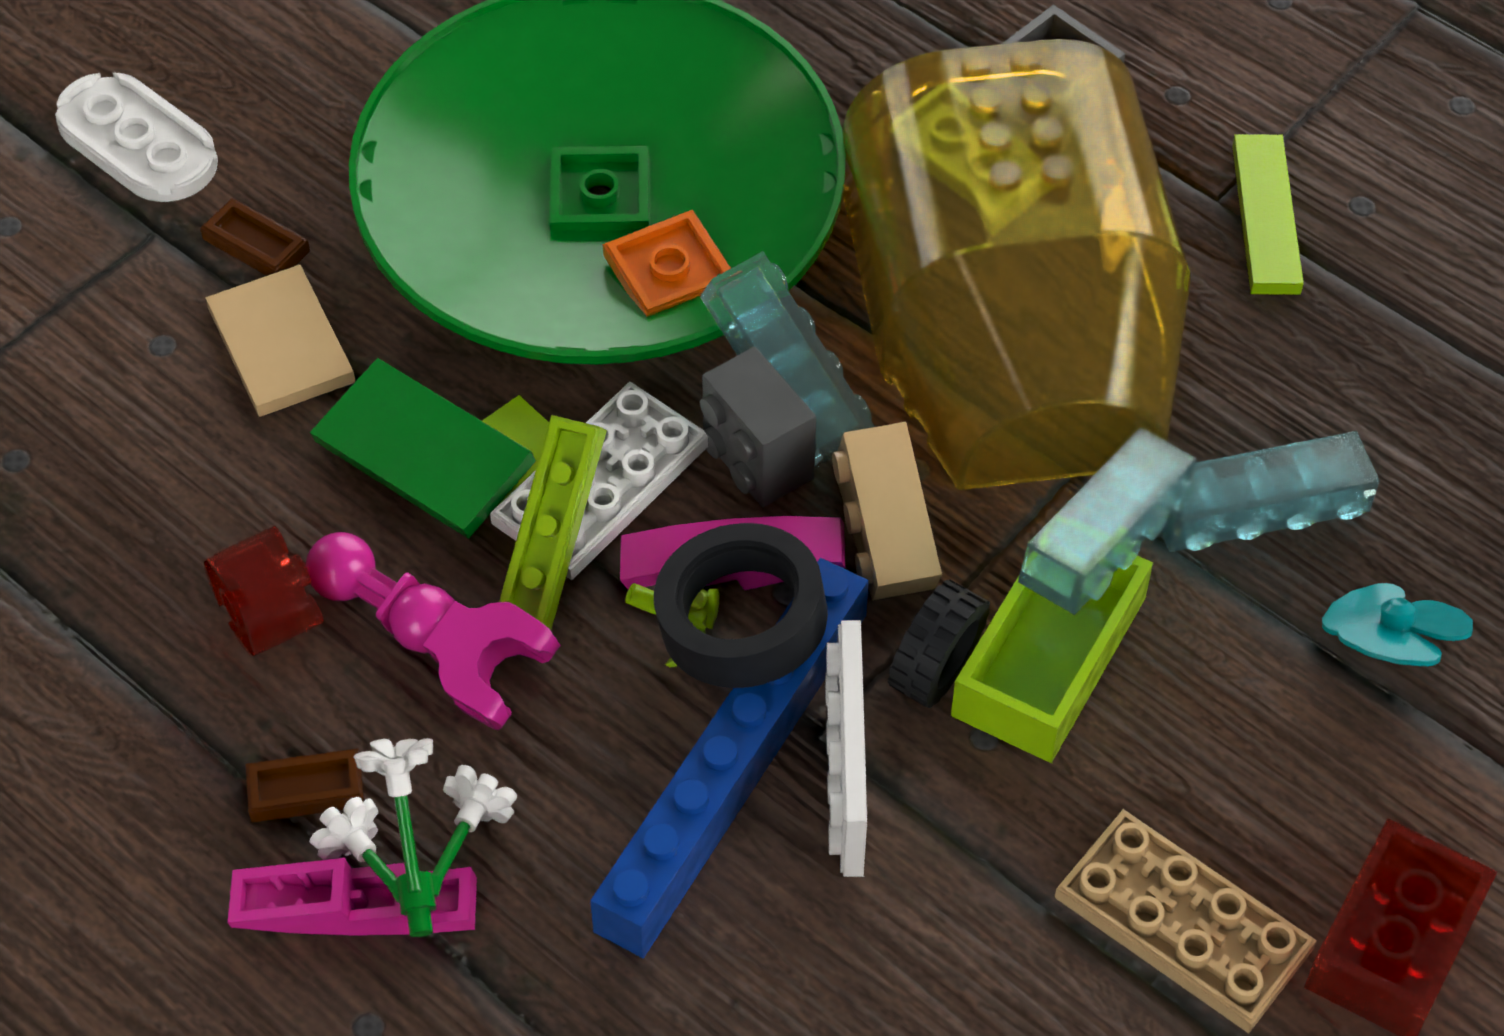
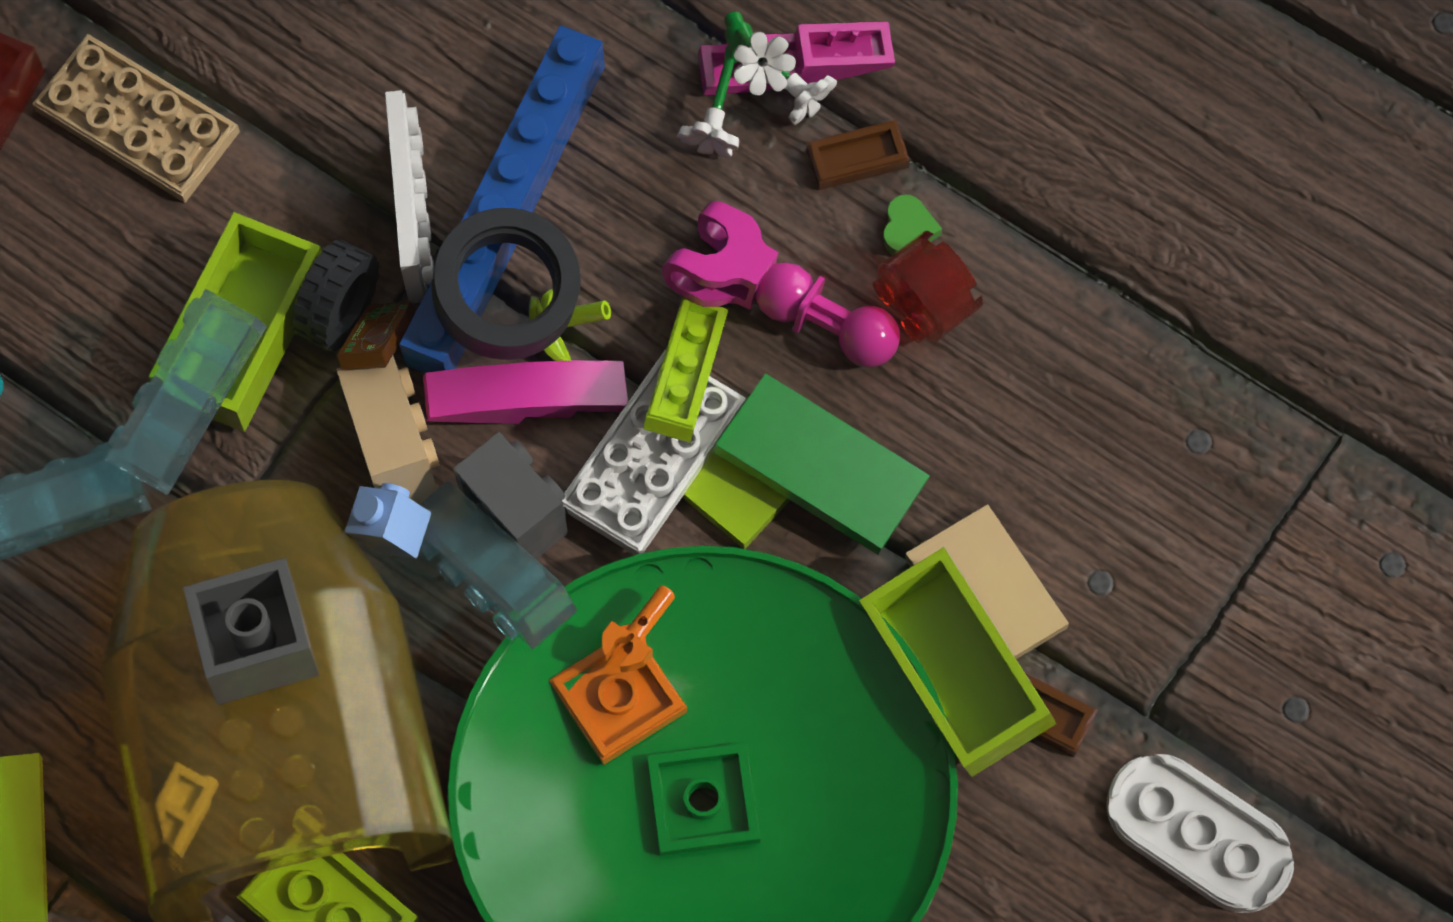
camera: 175 degrees right, 15 degrees up
(265, 696) = (907, 220): none -> bright green tile
(315, 246) = (975, 674): none -> lime piece
(640, 260) = (637, 631): none -> orange bar
(891, 392) = (388, 520): none -> light blue brick
(893, 602) = (376, 336): none -> reddish brown tile
(1029, 169) = (250, 631): none -> dark grey brick

